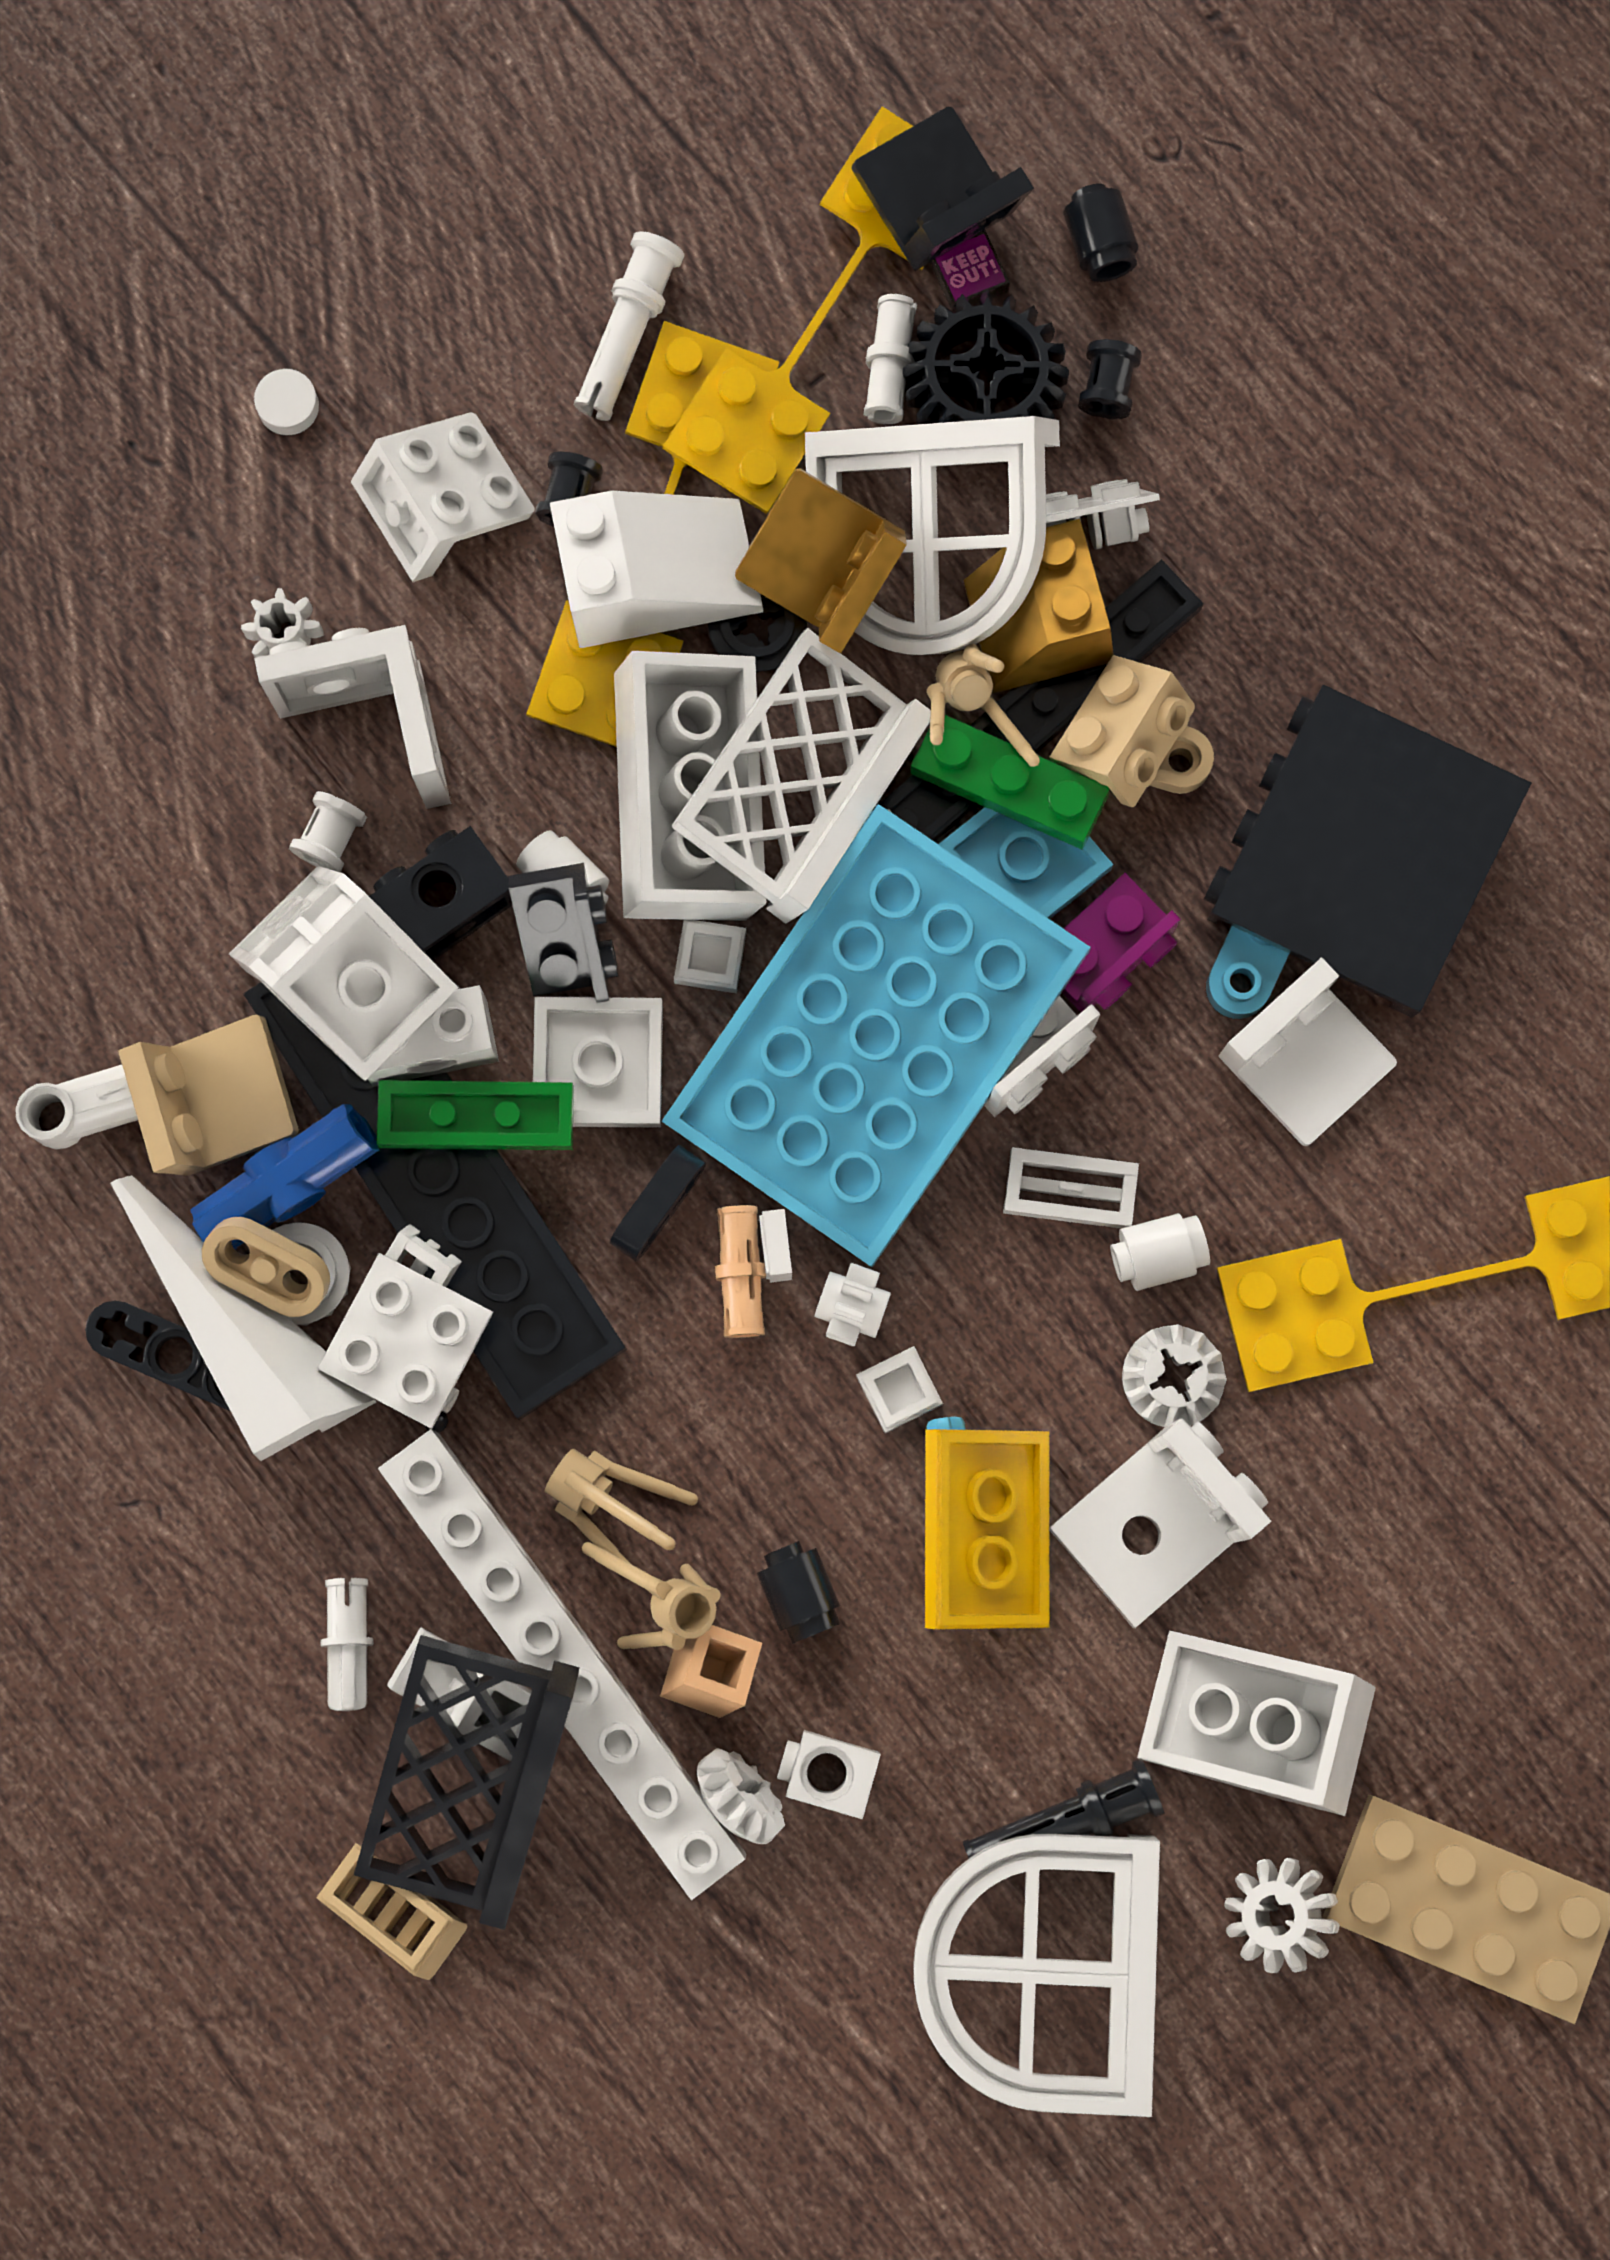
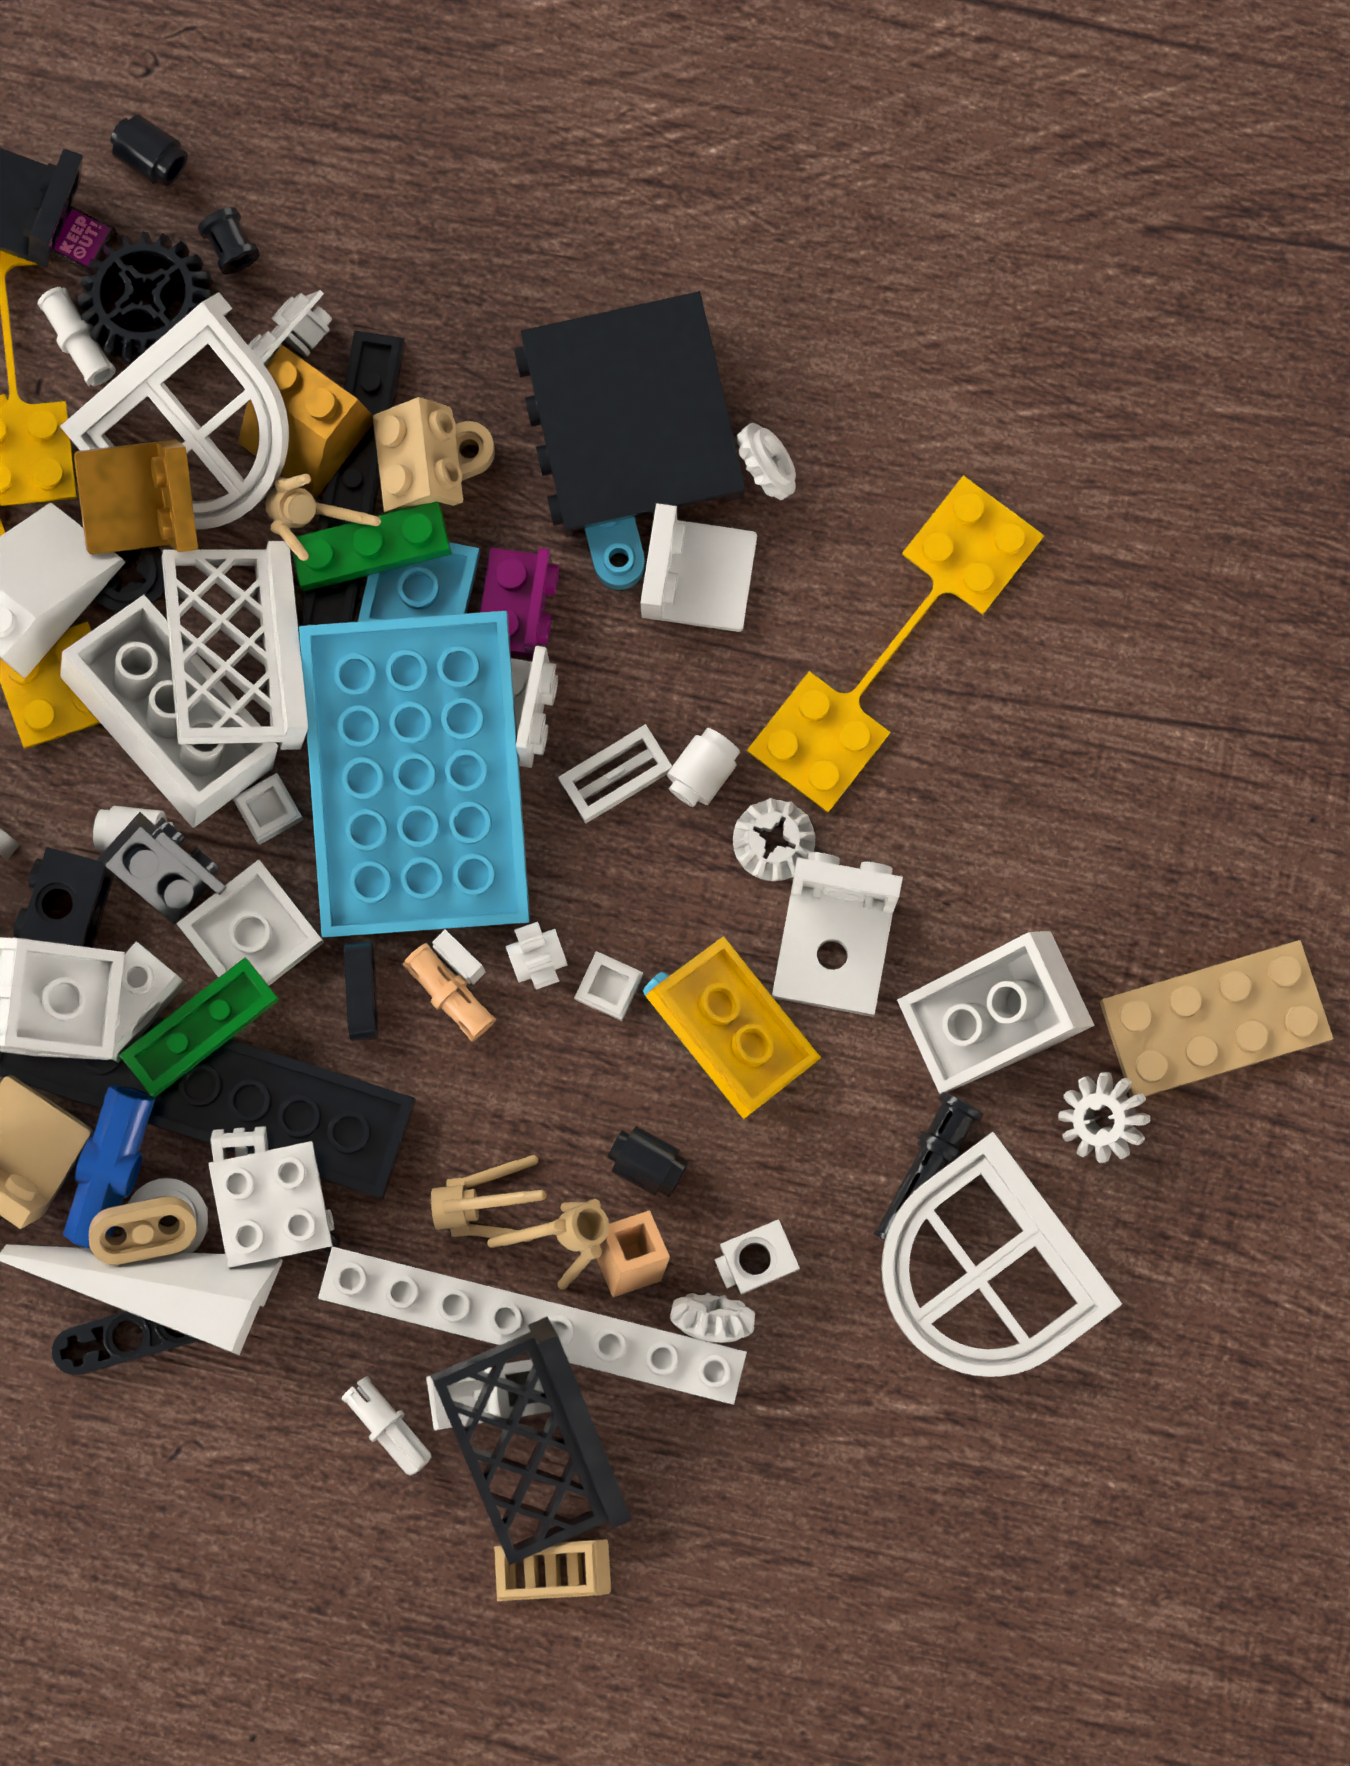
camera: 35 degrees left, 0 degrees up
(1464, 1000) = (767, 461): none -> white gear

